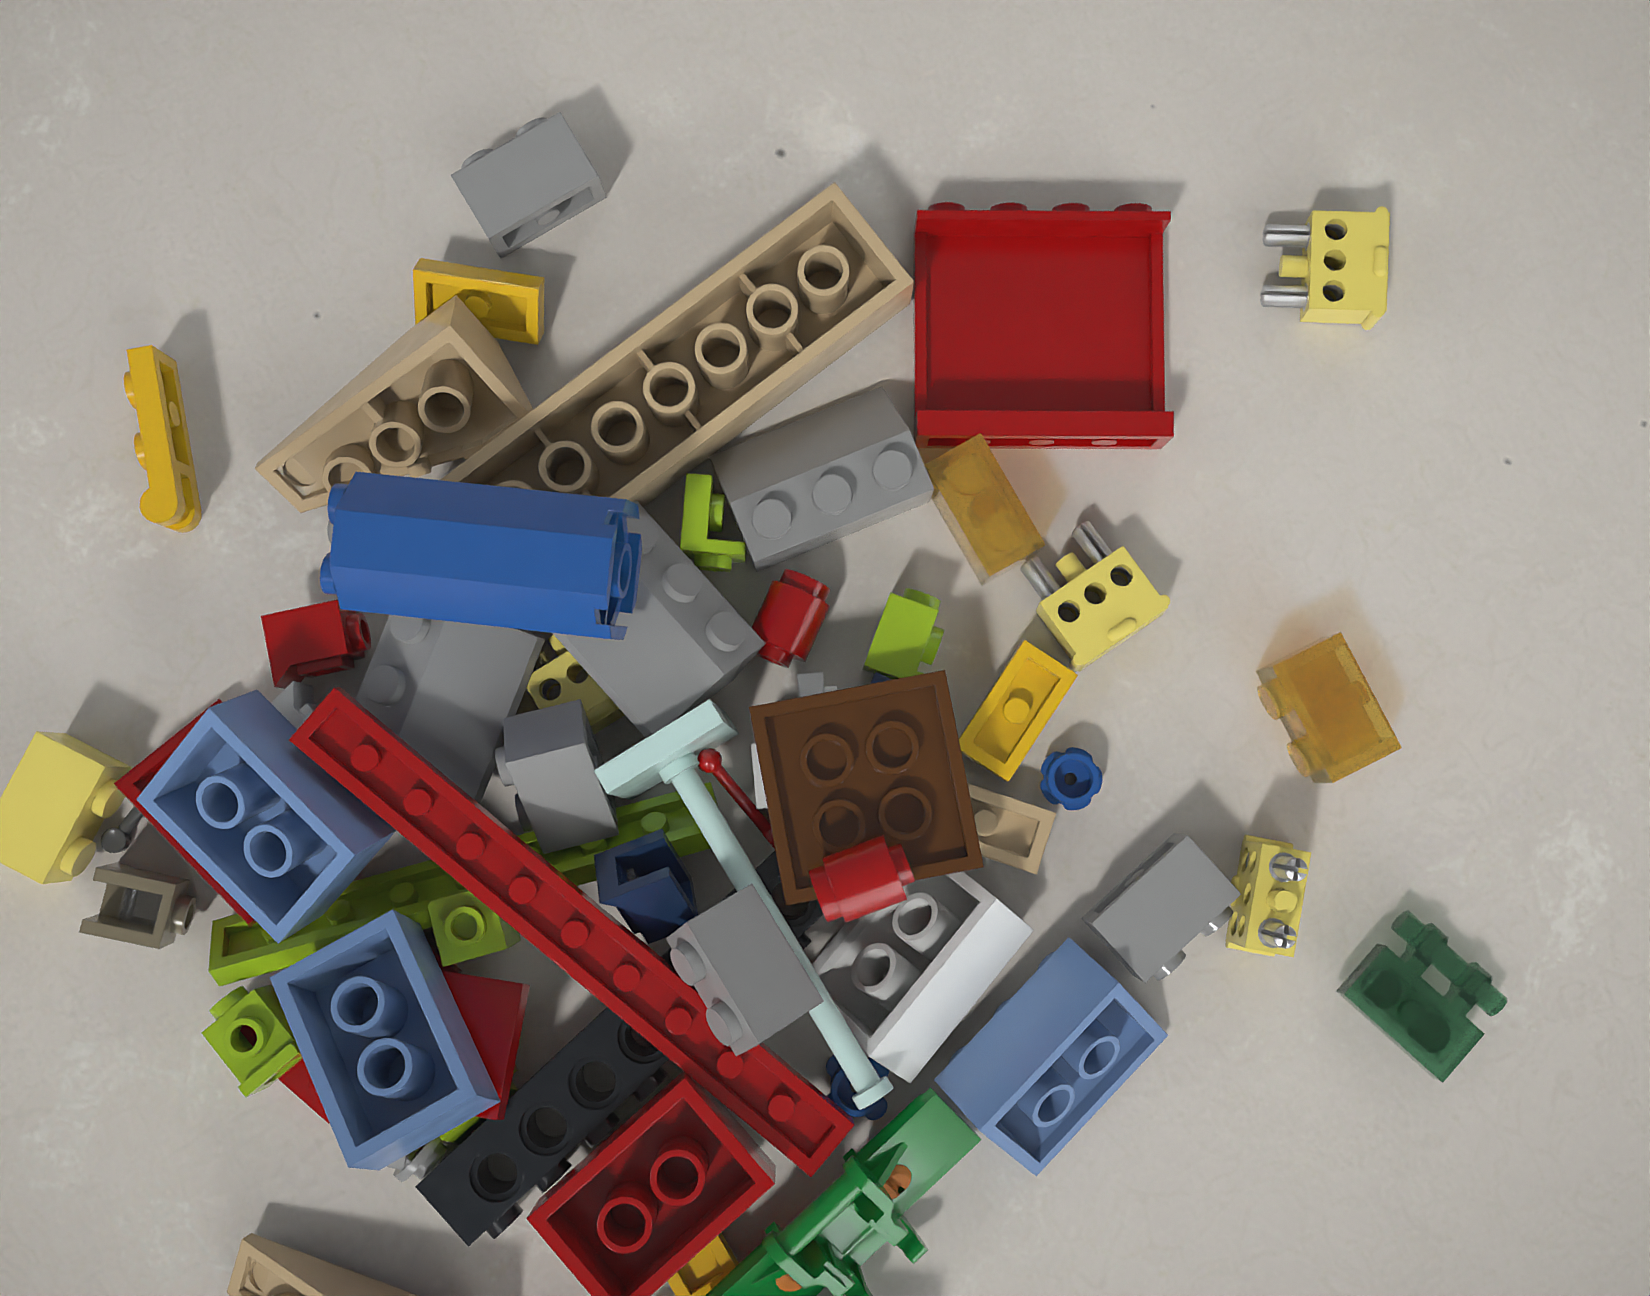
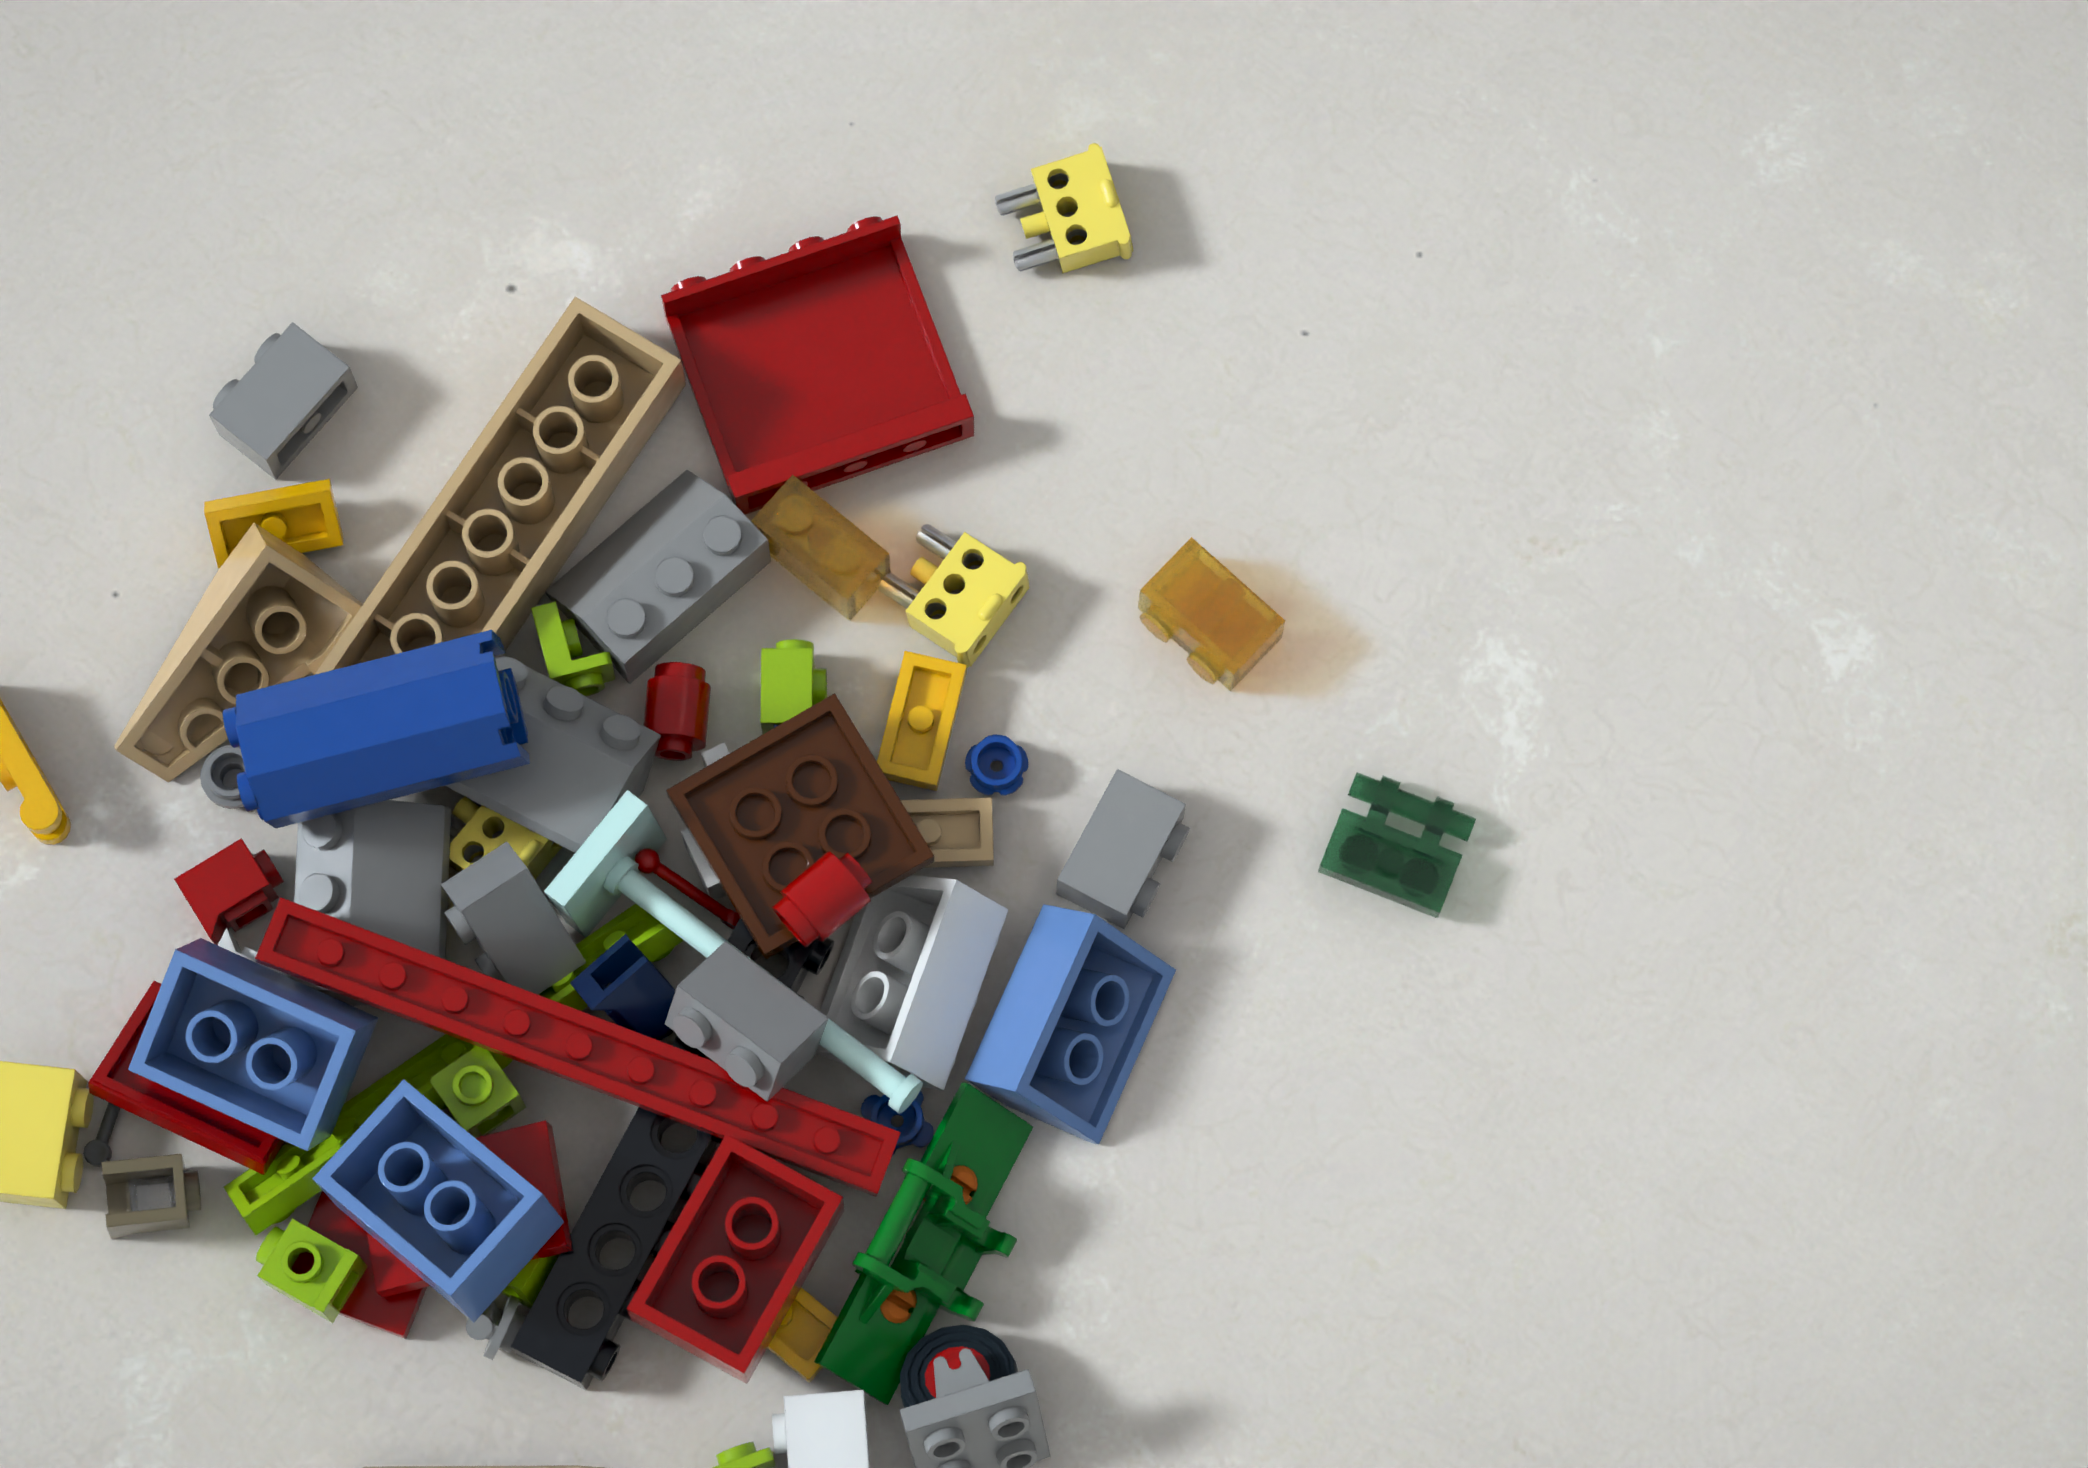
camera: 20 degrees left, 10 degrees down
(1271, 897) = (1216, 805): light yellow piece -> none

